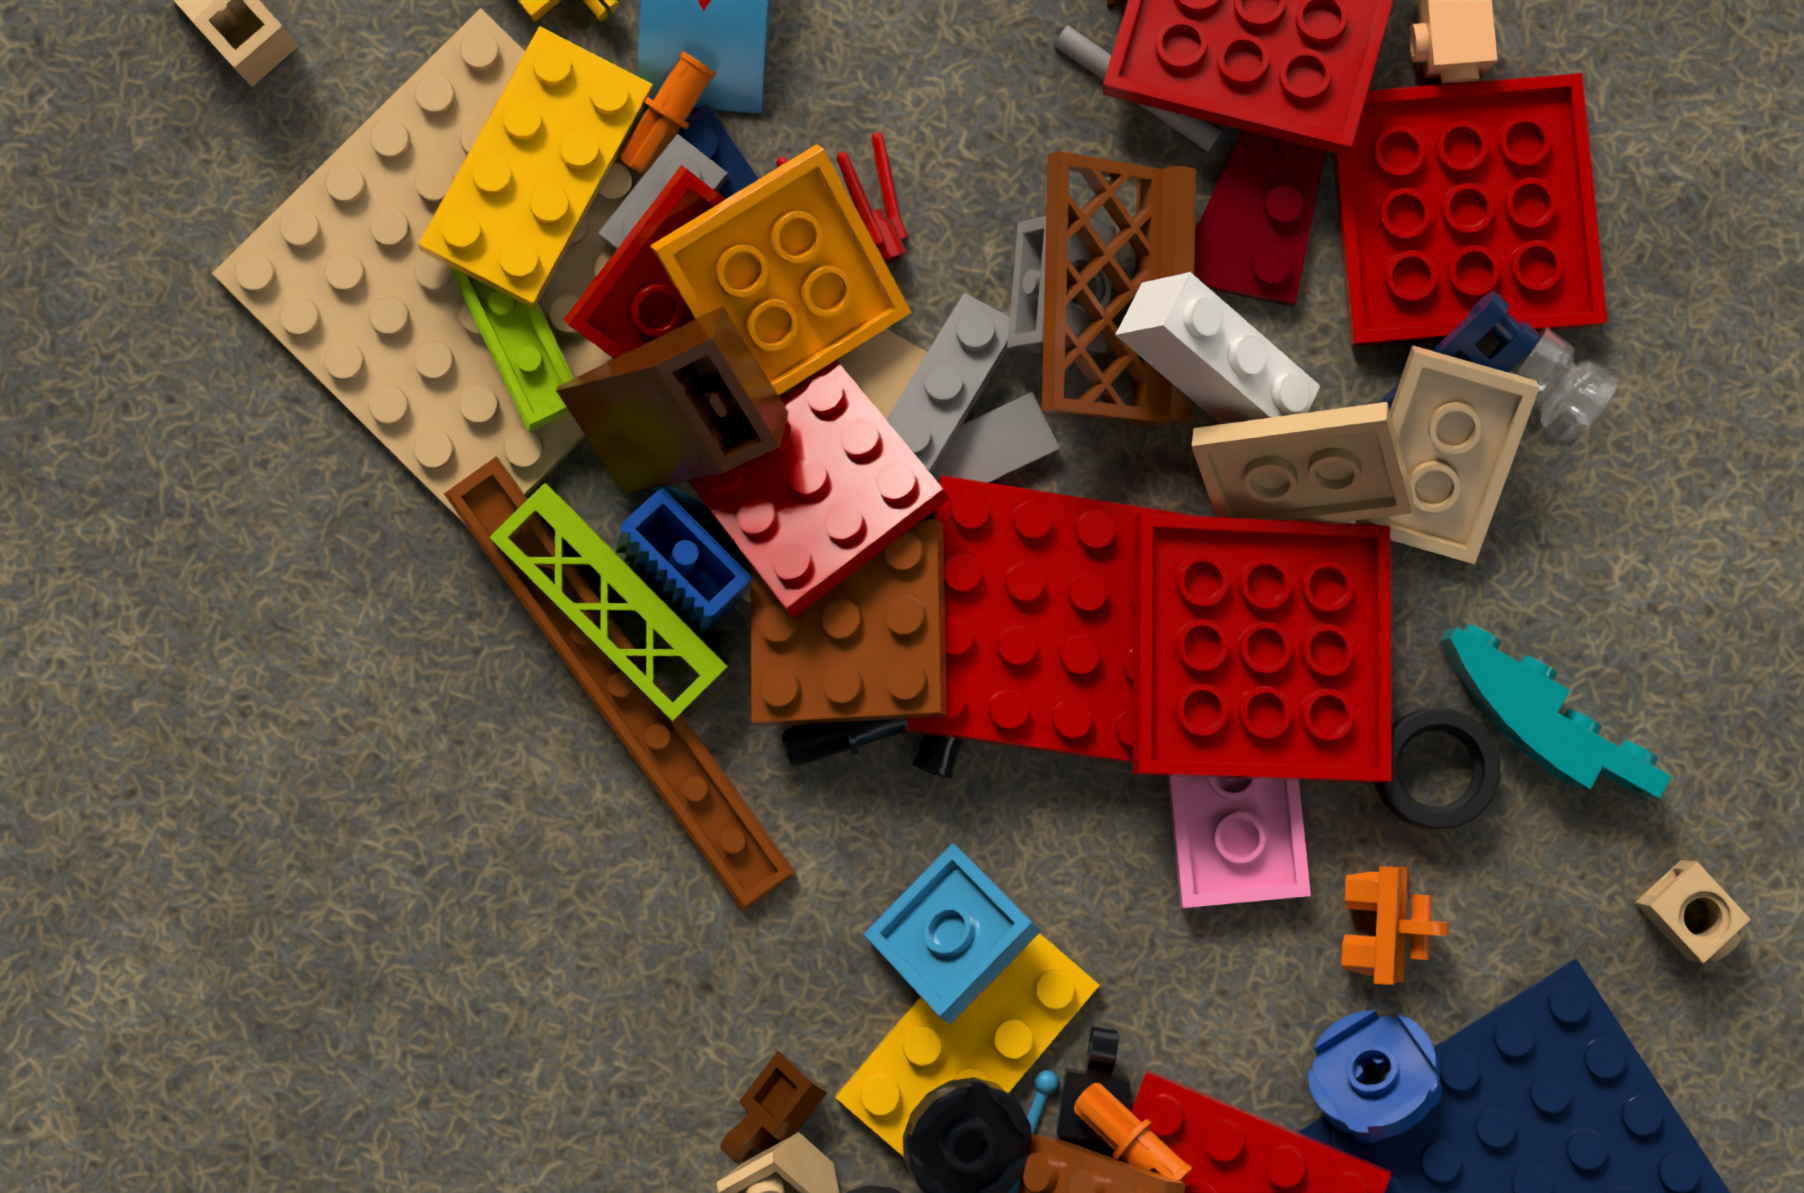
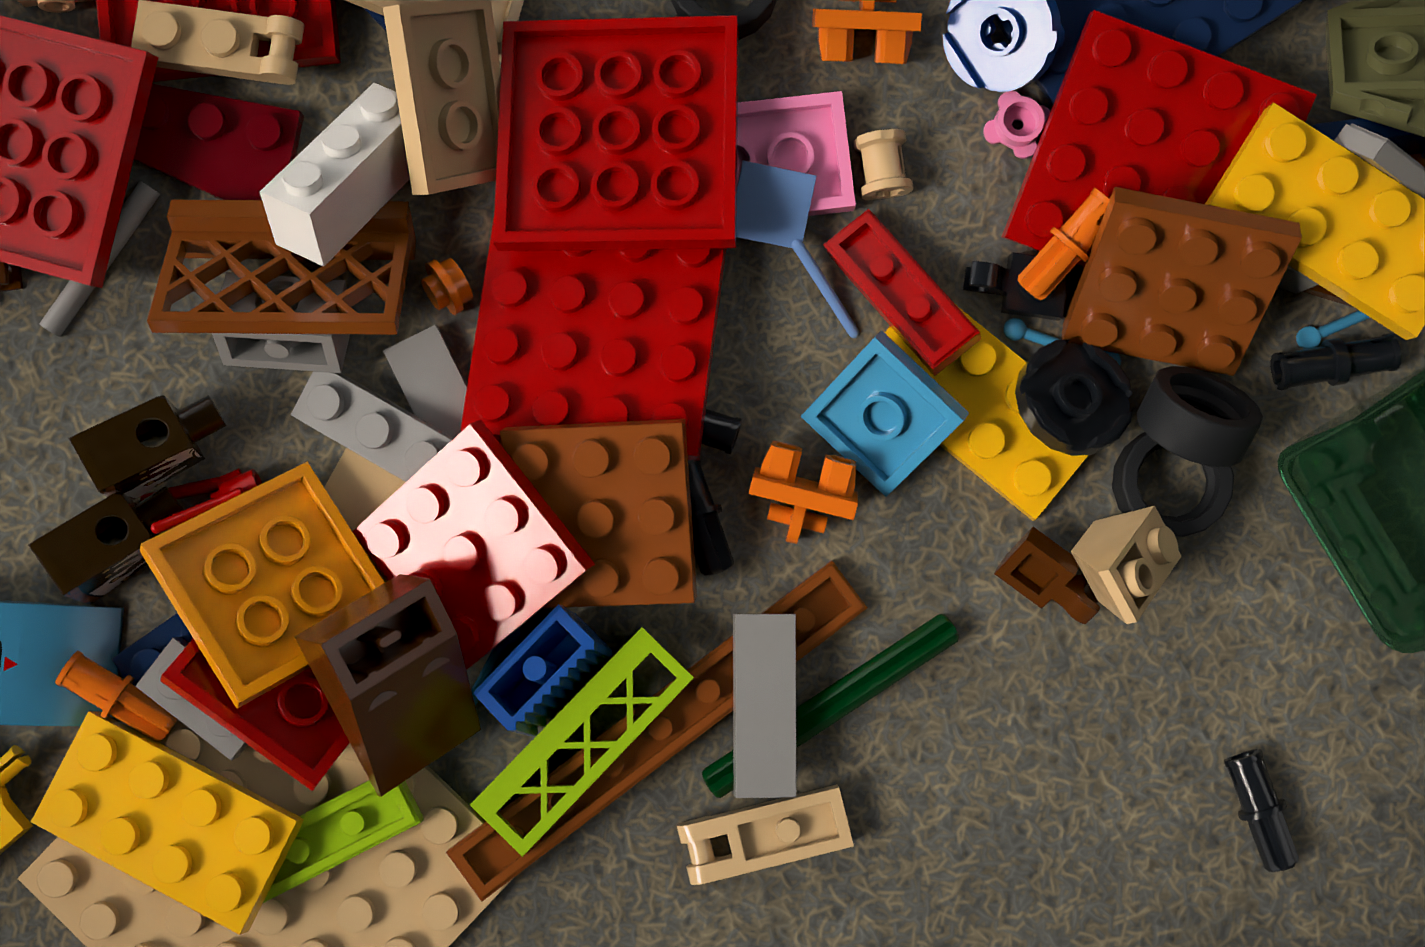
camera: 90 degrees left, 0 degrees up
(504, 797) = (767, 834): none -> tan plate
(640, 869) = (852, 690): none -> dark green axle
(641, 796) = (764, 705): none -> light grey tile
(807, 83) = (84, 565): none -> dark brown torso
(865, 871) = (831, 495): none -> orange hips
(910, 124) = (121, 463): none -> dark brown torso
(1086, 956) = (902, 292): none -> red tile
(1101, 460) = (446, 285): none -> orange plate
(1177, 819) = (775, 211): none -> medium blue piece
(1229, 940) = (883, 164): none -> tan bush
(1267, 1074) = (1017, 107): none -> bright pink plate
(1368, 217) = (218, 41): none -> tan plate

